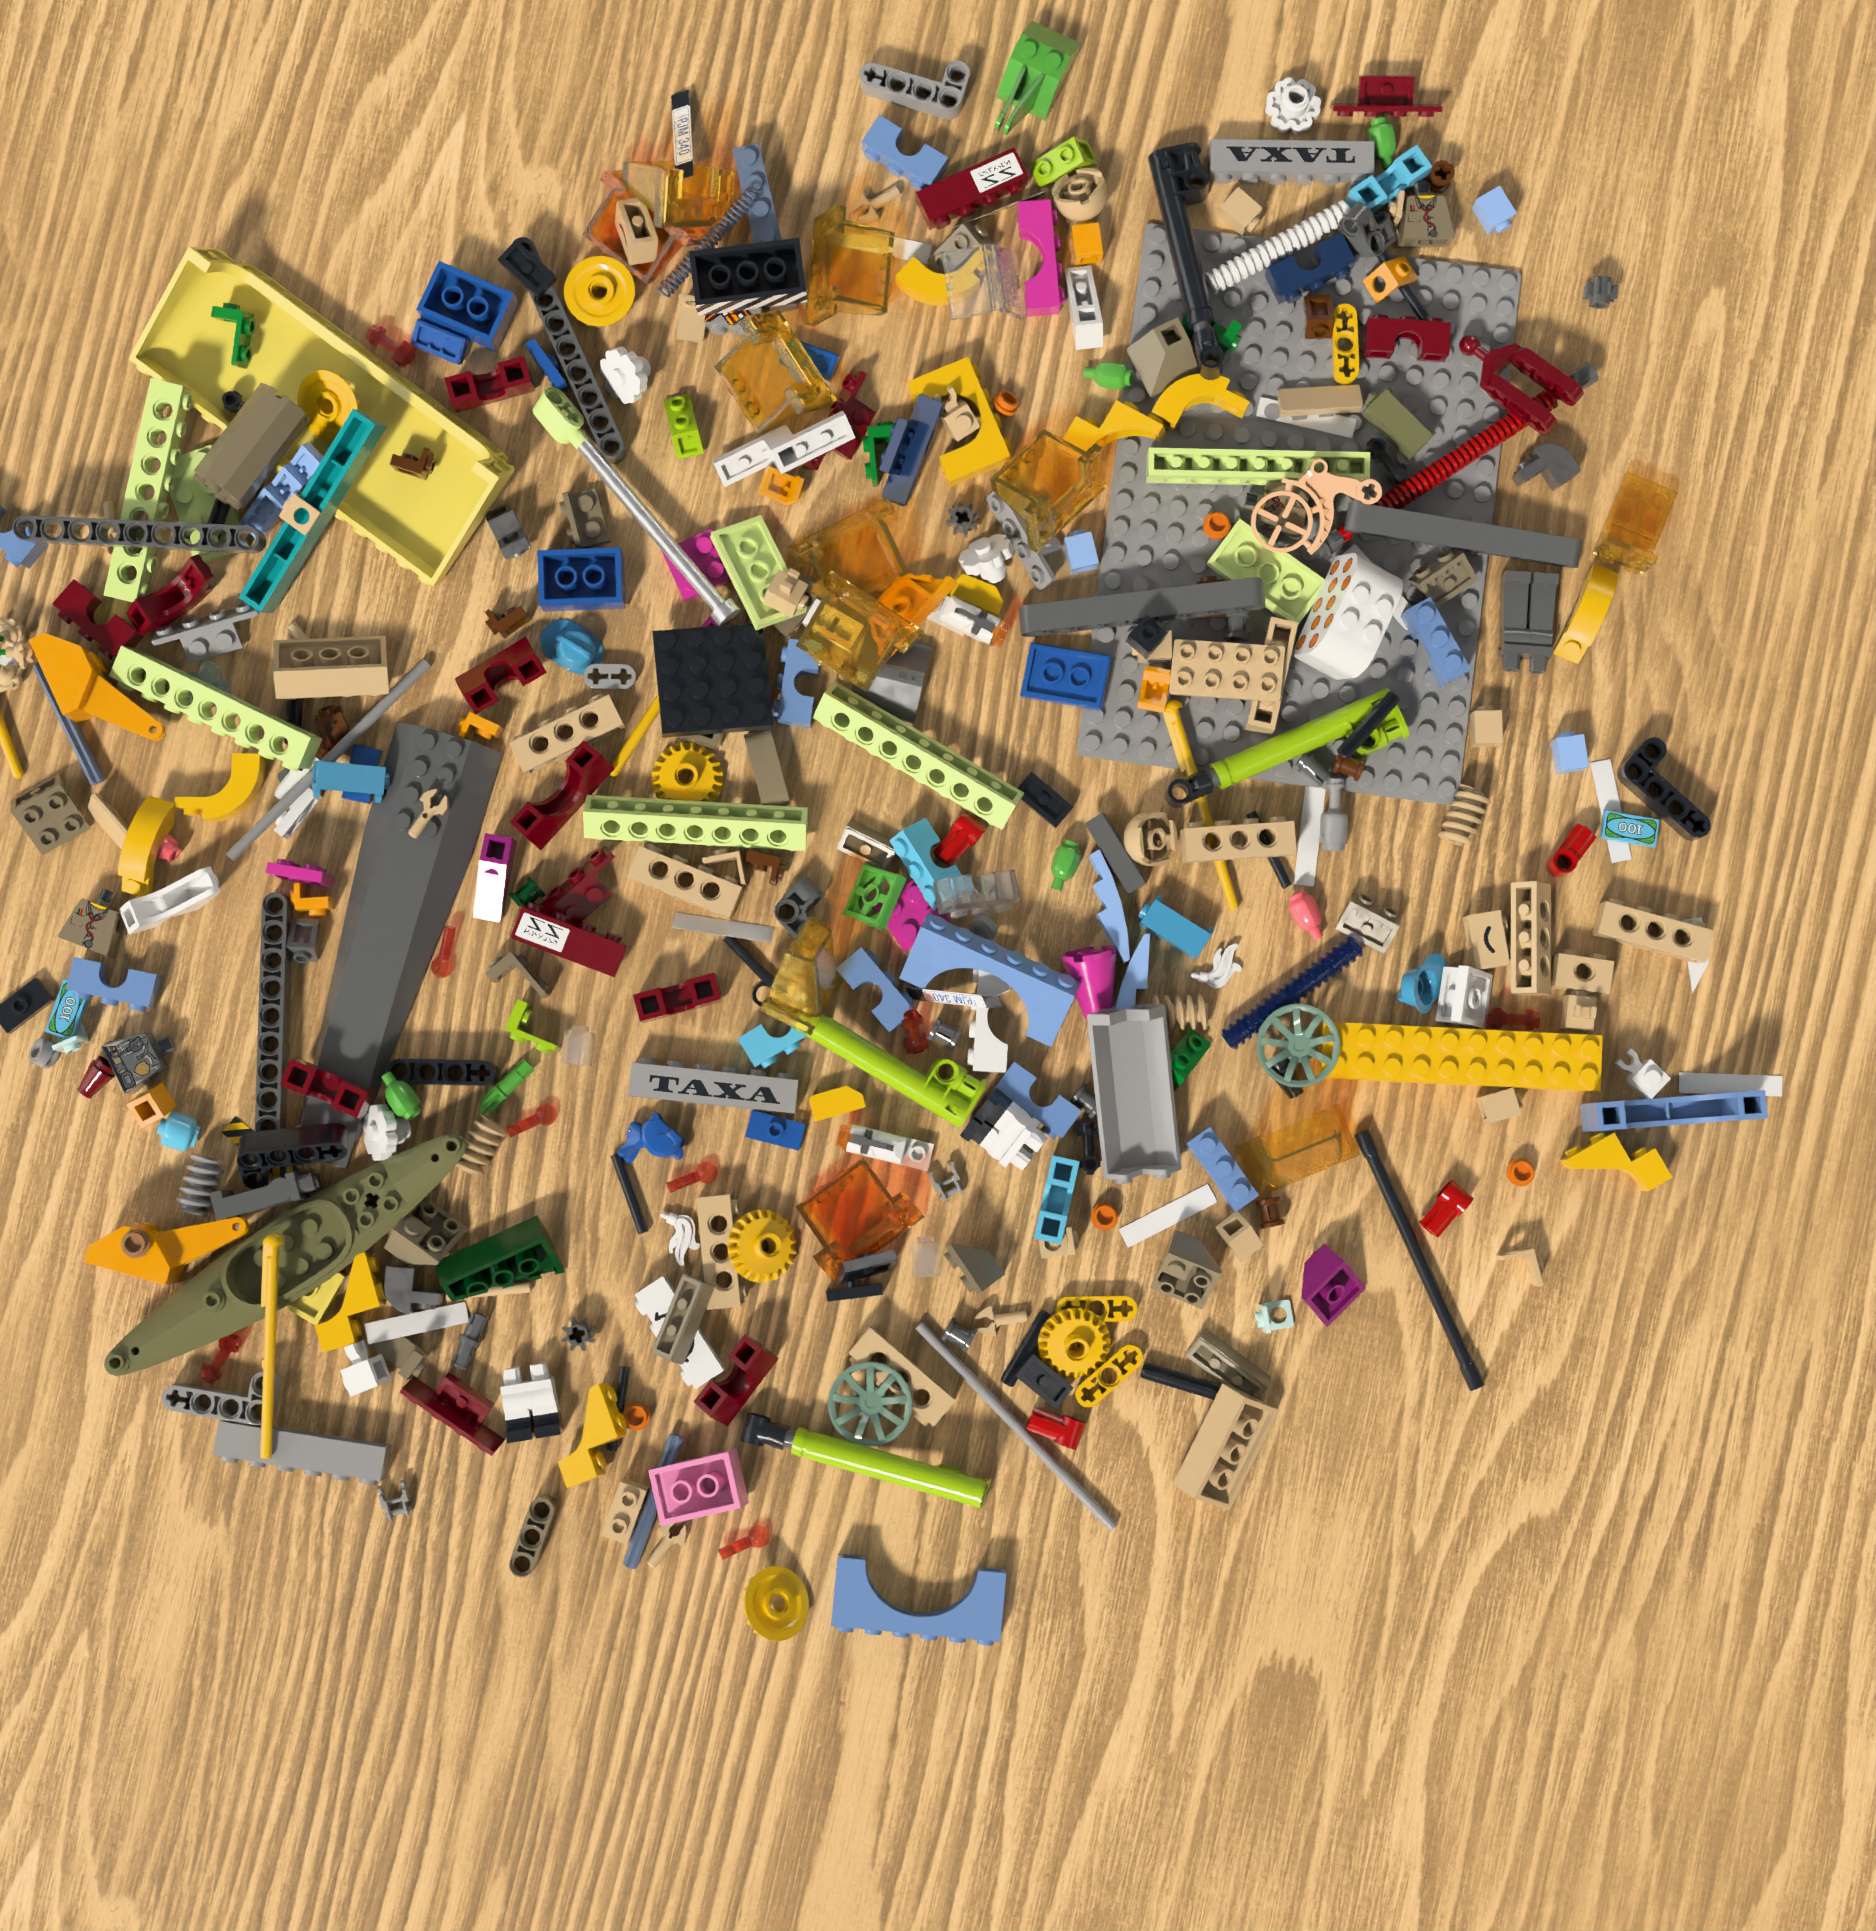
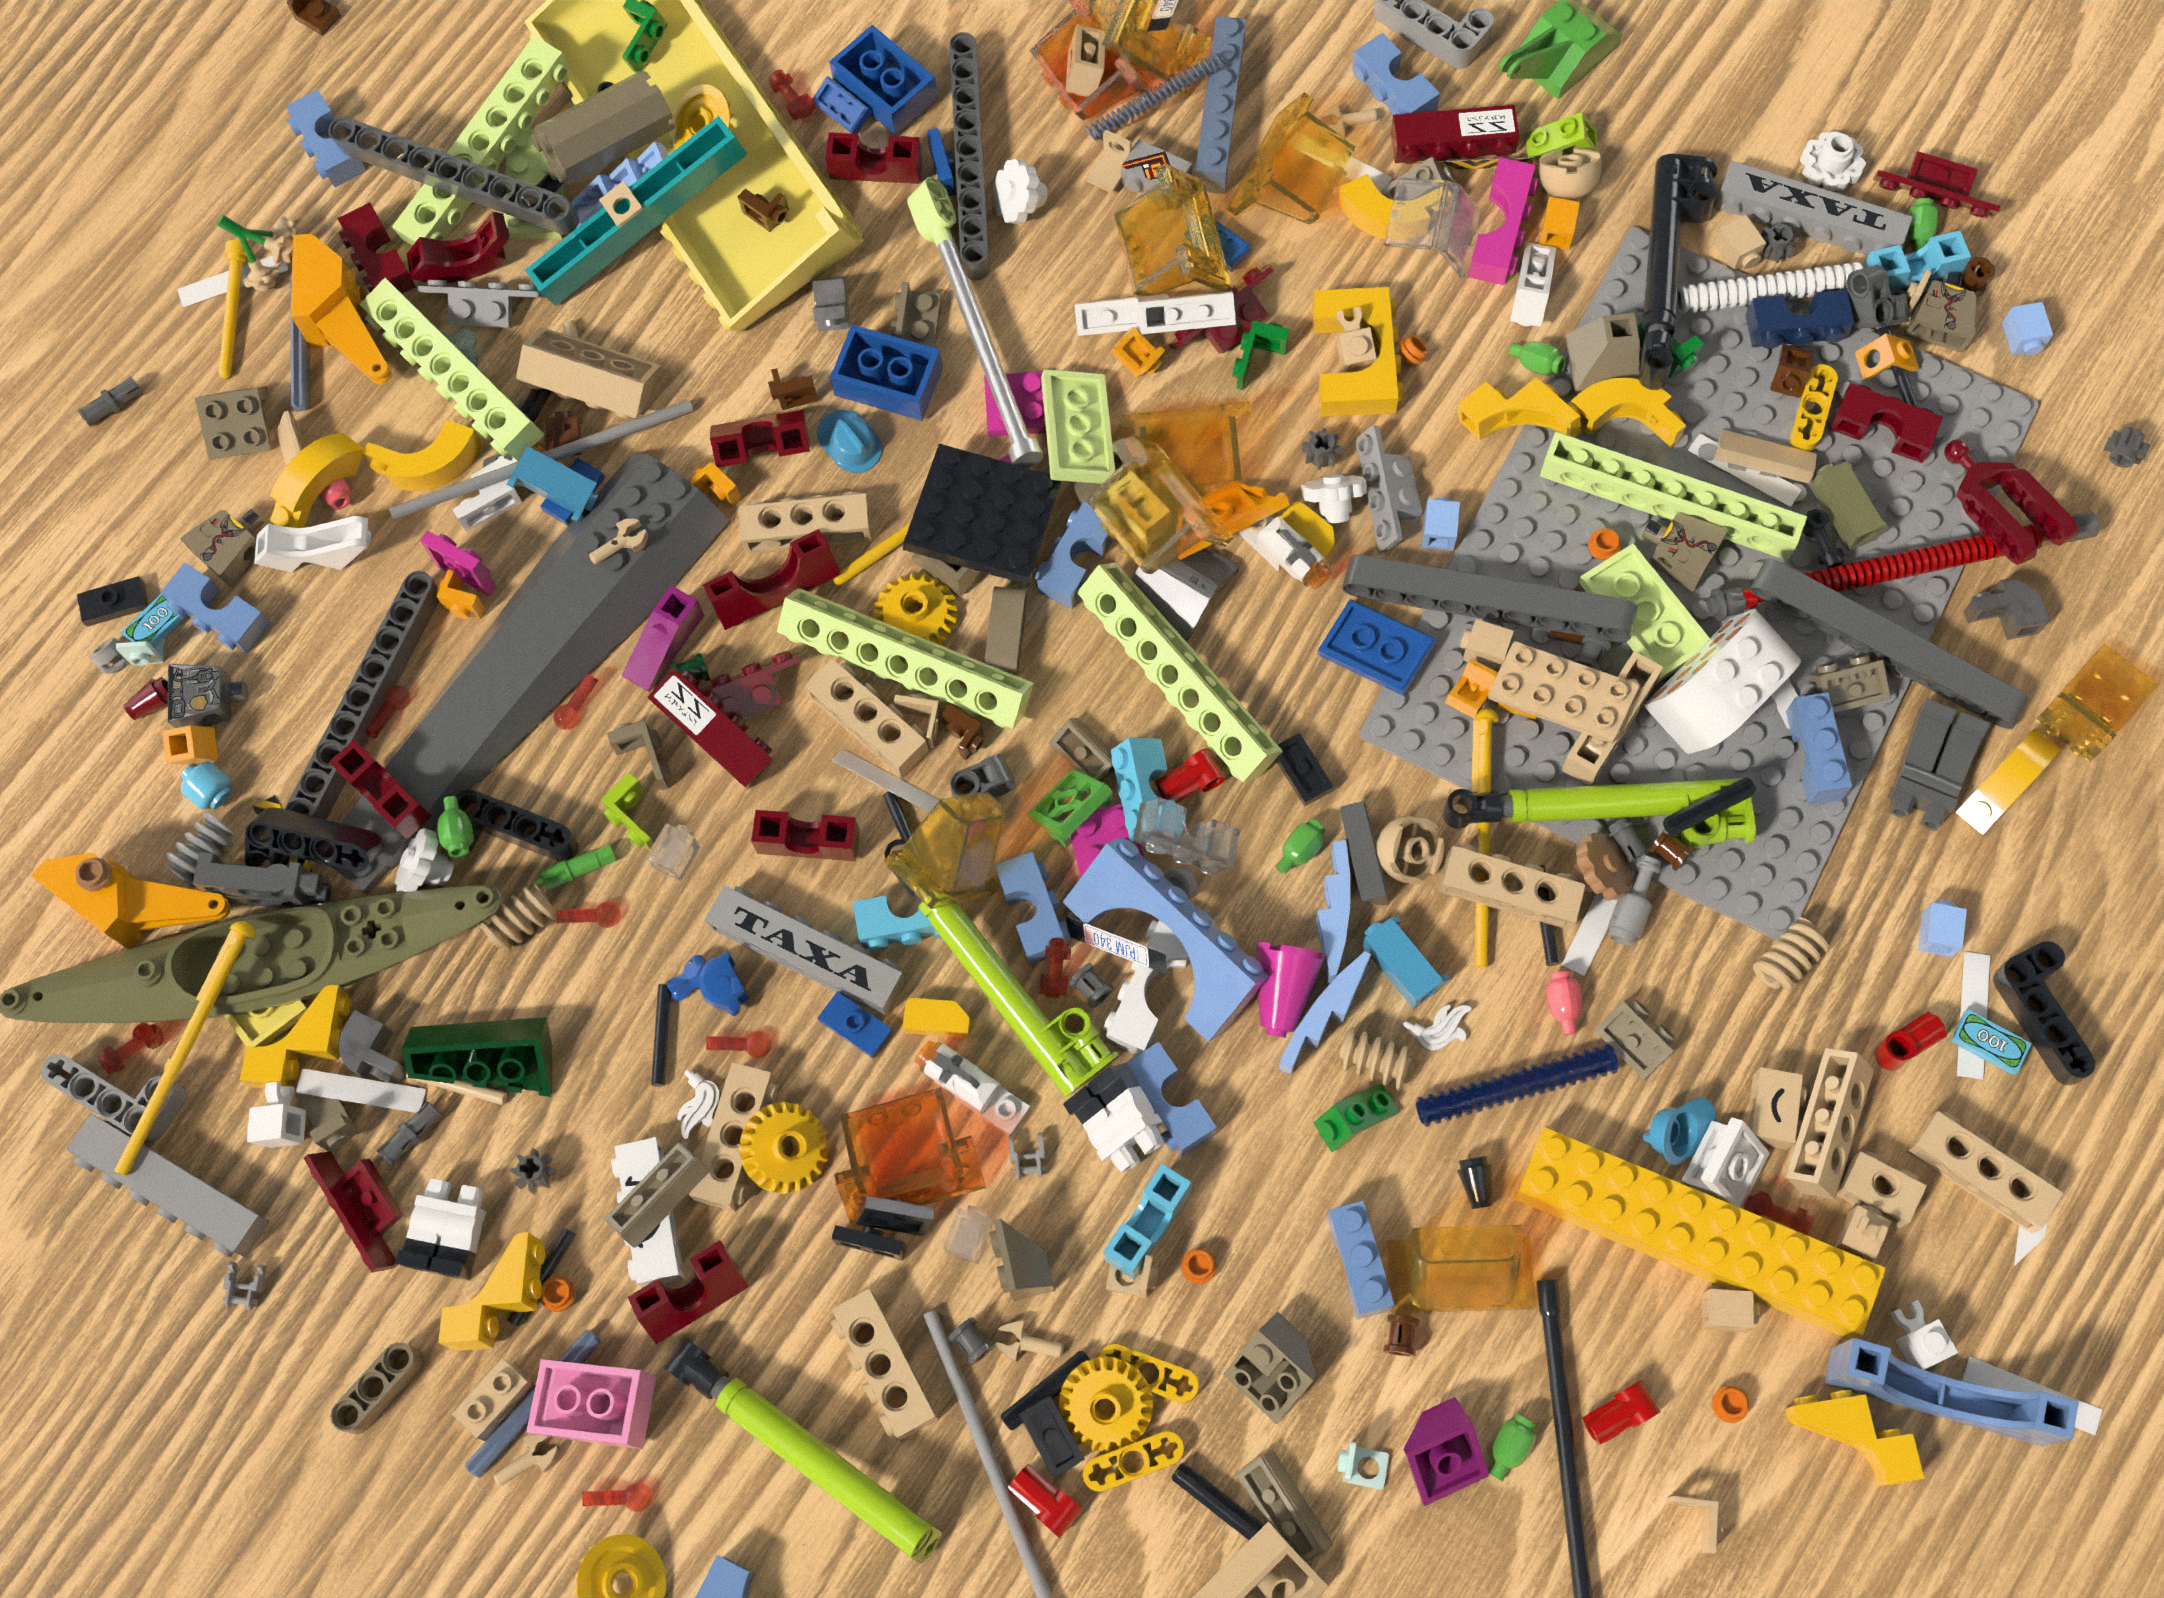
camera: 30 degrees right, 15 degrees down
(297, 1003) = (396, 699): none -> clear red bar
(303, 940) = (431, 635): dark grey bracket -> none
(425, 1235) = (413, 992): dark tan slope -> none
(527, 269) = (958, 59): black plate -> none
(597, 274) = (1023, 94): yellow gear -> none
(610, 669) = (878, 475): light grey beam -> none
(683, 426) = (1057, 265): lime bracket -> none
(748, 276) = (1182, 128): black brick -> none
(787, 593) = (1098, 449): tan brick -> none
(870, 1404) = (832, 1381): sand green wheel -> none
(908, 449) = (1288, 355): dark blue bracket -> none
(1050, 484) = (1432, 439): clear yellow windscreen -> none
(1085, 1099) = (1229, 1121): dark grey bush -> none
(1089, 1163) = (1204, 1194): black bar -> none
(1134, 1092) = (1286, 1127): light grey panel -> none
(1146, 637) = (1482, 622): black brick -> none
(1167, 1215) = (1275, 1295): white sticker -> none
(1239, 1236) = (1353, 1348): tan brick -> none
(1271, 191) = (1779, 242): none -> dark grey gear
(1298, 1045) = (1504, 1145): sand green wheel -> none
(1301, 800) = (1602, 867): none -> medium nougat plant
(1322, 488) = (1738, 532): light nougat piece -> none
(1376, 1260) = (1512, 1445): none -> bright green plant
(1485, 727) = (1849, 866): tan brick -> none

